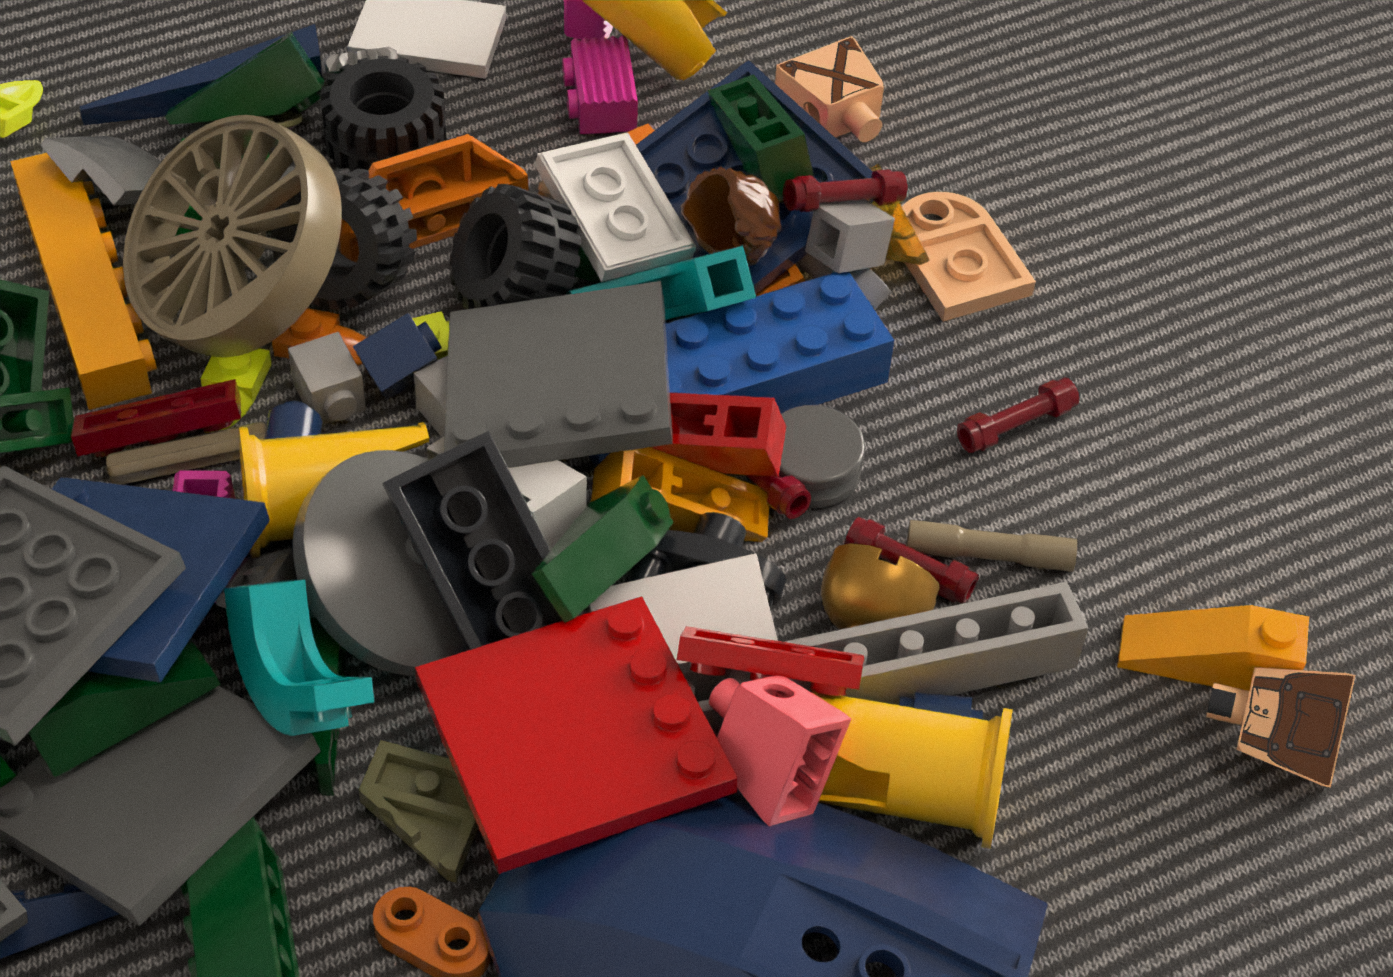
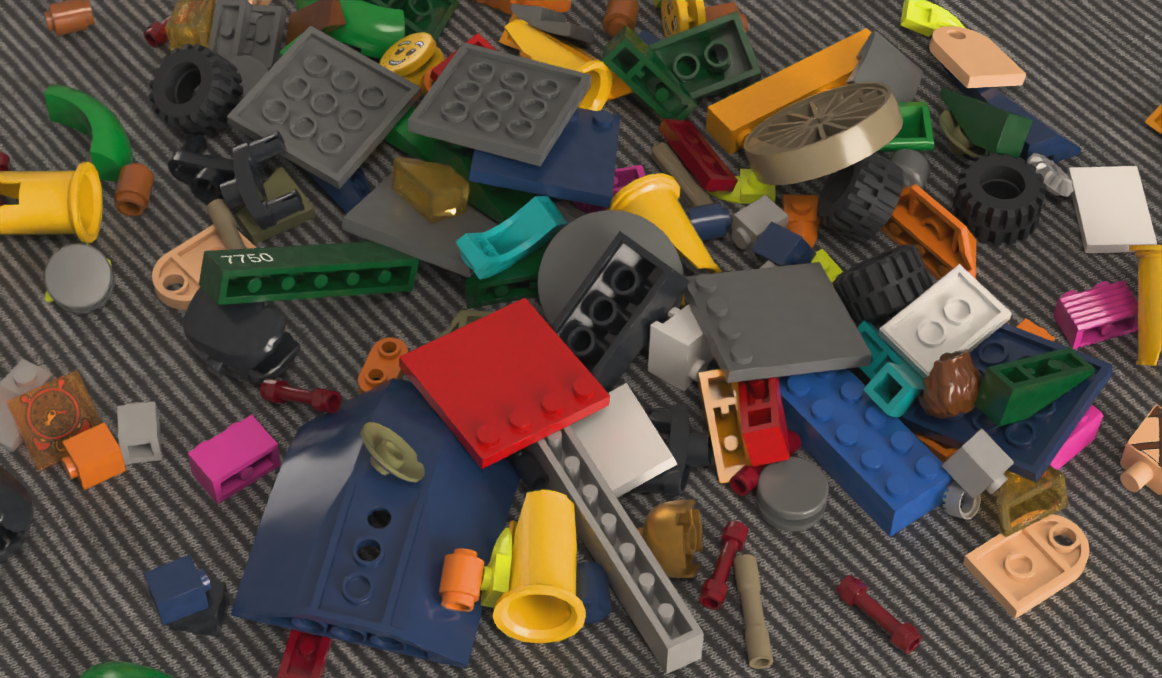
camera: 80 degrees right, 0 degrees up
(110, 767) = (430, 188): none -> clear yellow slope
(113, 78) = (974, 58): none -> light nougat tile
(603, 546) = (640, 368): dark green slope -> none
(715, 651) = (578, 466): red plate -> none
(727, 891) = (391, 453): none -> olive dish
(778, 743) = (521, 471): coral torso -> none
(806, 192) = (1023, 470): dark red bar -> none
(922, 810) = (497, 572): none -> neon yellow plate
(943, 856) = (461, 580): none -> orange brick

